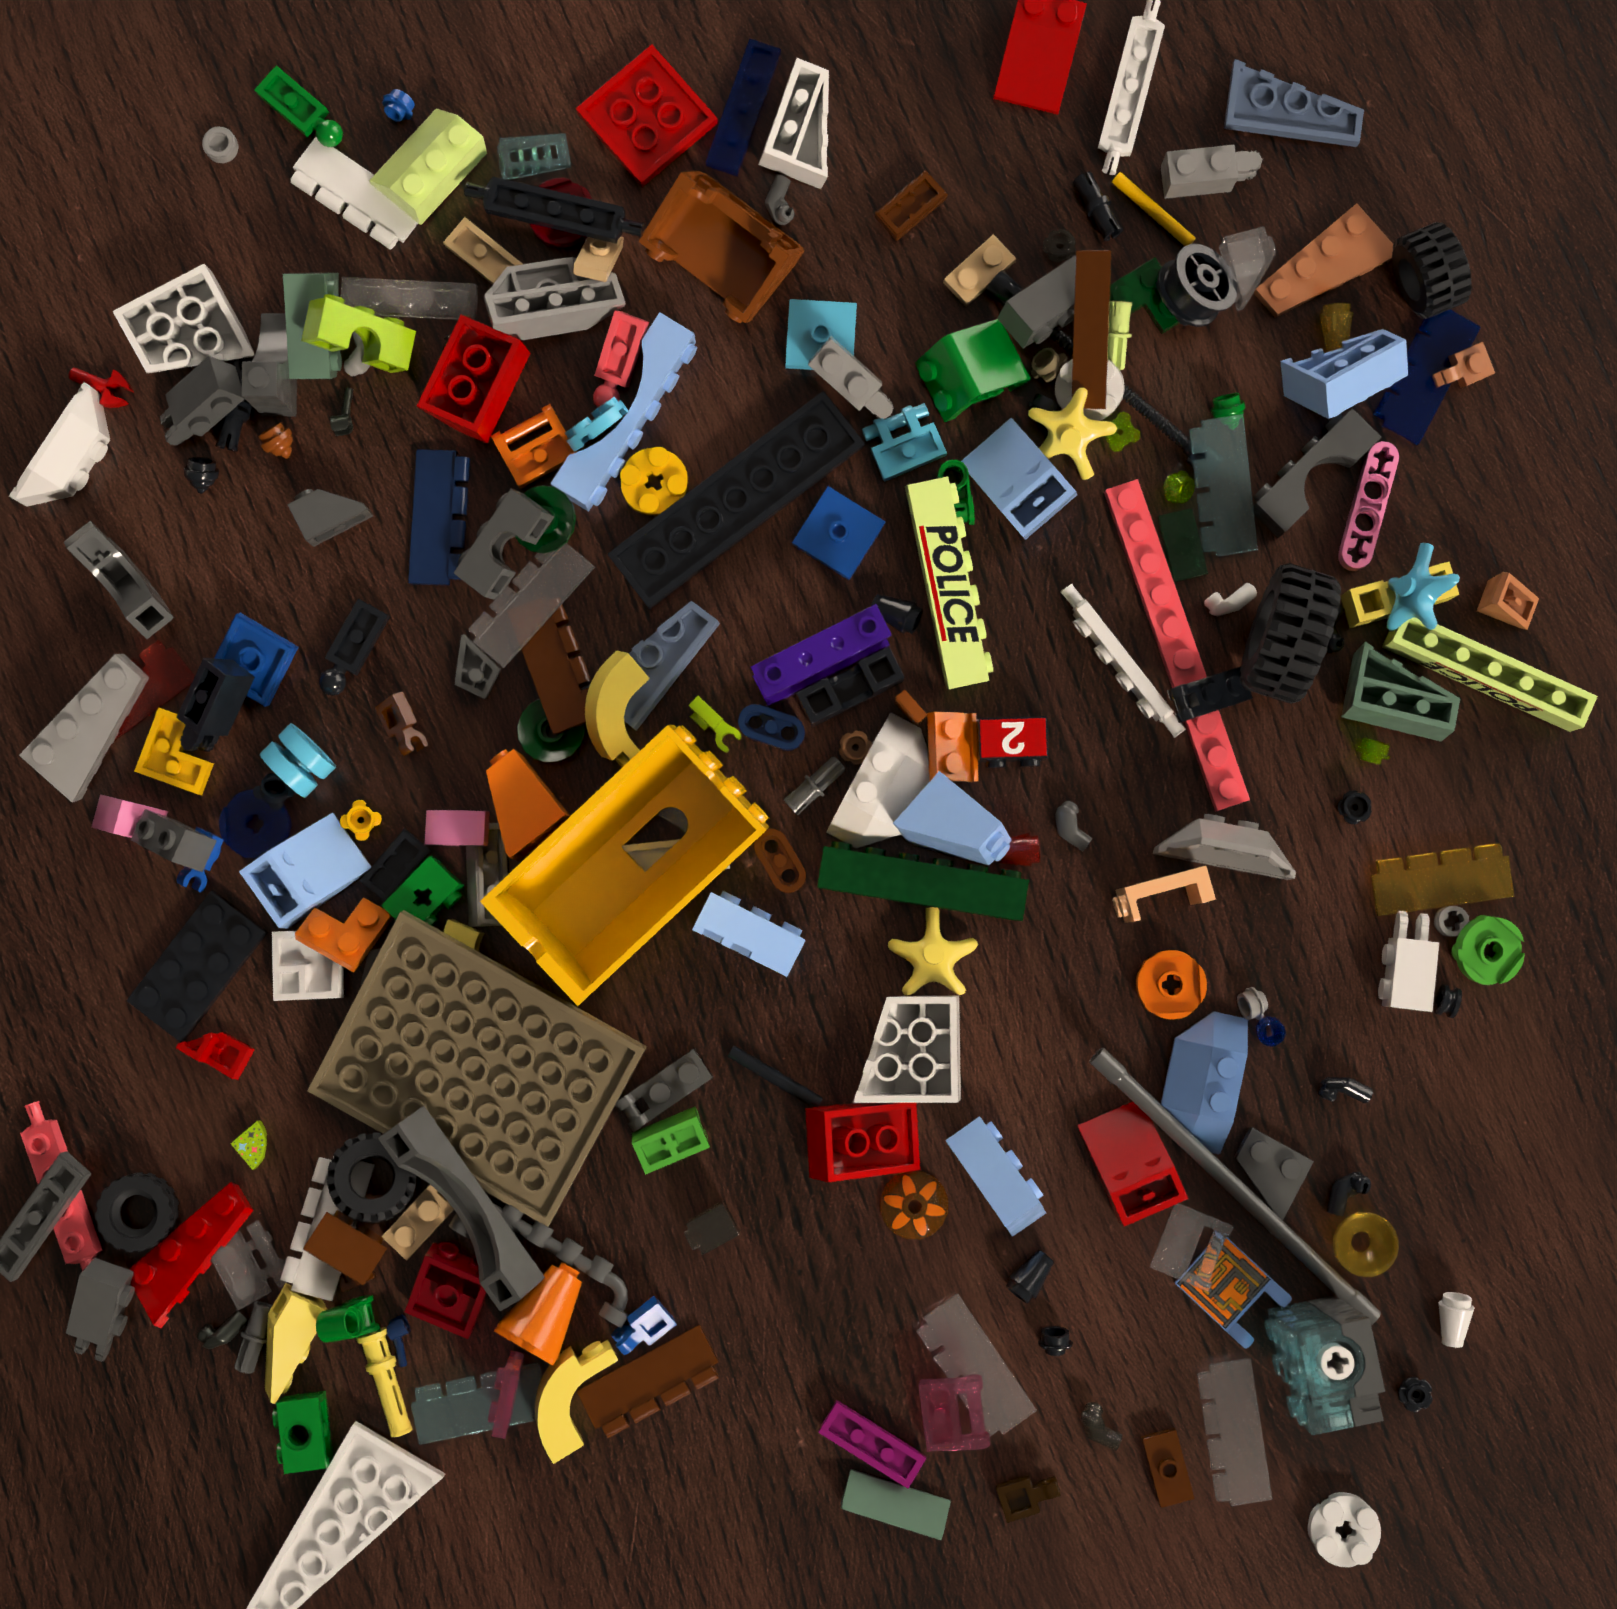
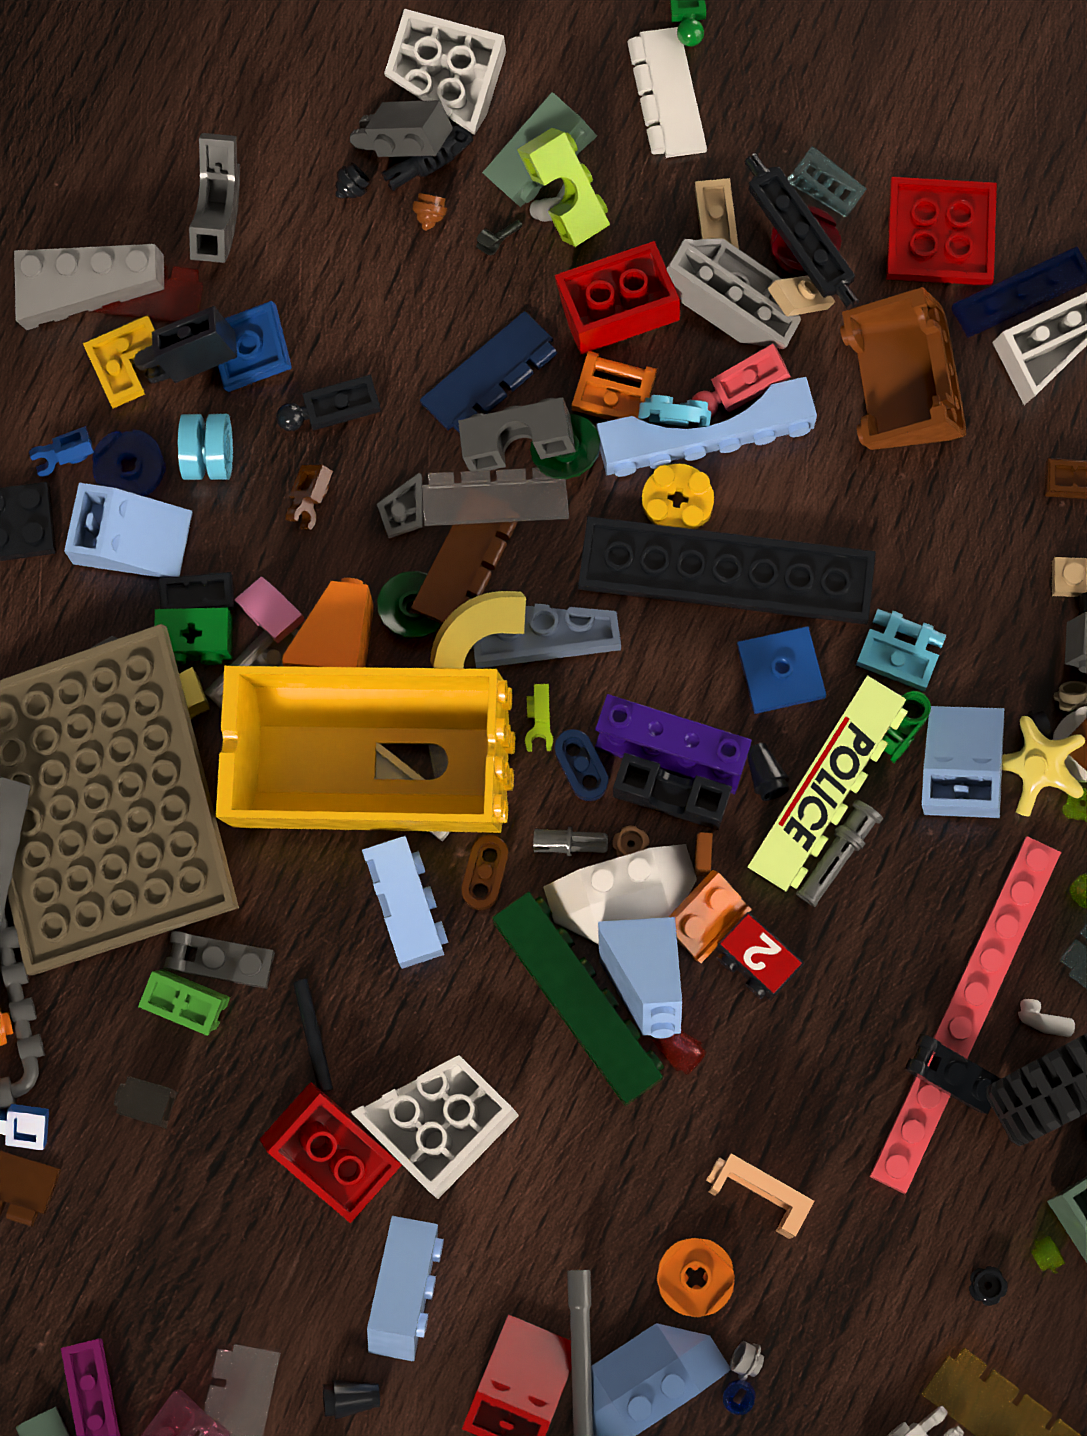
camera: 45 degrees right, 10 degrees down
(67, 452) = (271, 76): white wedge -> none
(103, 386) = (346, 59): red bar -> none
(119, 815) = (45, 376): bright pink slope -> none
(173, 840) = (57, 416): dark grey brick -> none
(267, 377) = (464, 157): dark grey arch -> none
(269, 783) = (169, 445): black plate -> none
(303, 972) = (59, 603): white plate -> none
(326, 514) = (409, 294): dark grey slope -> none
(348, 941) = (102, 612): orange plate -> none
(358, 810) = (199, 528): yellow plate -> none
(398, 105) = (761, 58): blue plate -> none
(411, 297) = (632, 201): clear plate -> none
(430, 164) = (742, 121): yellowish green slope -> none
(776, 203) = (978, 383): dark grey arm -> none
(811, 326) = (915, 511): medium azure plate -> none
(850, 378) = (905, 560): light grey hinge -> none
(909, 1187) = (337, 1252): clear orange dish -> none
(933, 956) = (528, 1064): light yellow animal -> none
(971, 368) = (1010, 642): green piece -> none
(994, 605) = (848, 838): none -> dark grey pin
(1067, 826) = (737, 1068): dark grey arm -> none
(1129, 674) = (903, 997): white plate -> none
(1182, 545) = (1047, 939): clear green plate -> none
(1228, 846) = (850, 1211): light grey wedge -> none

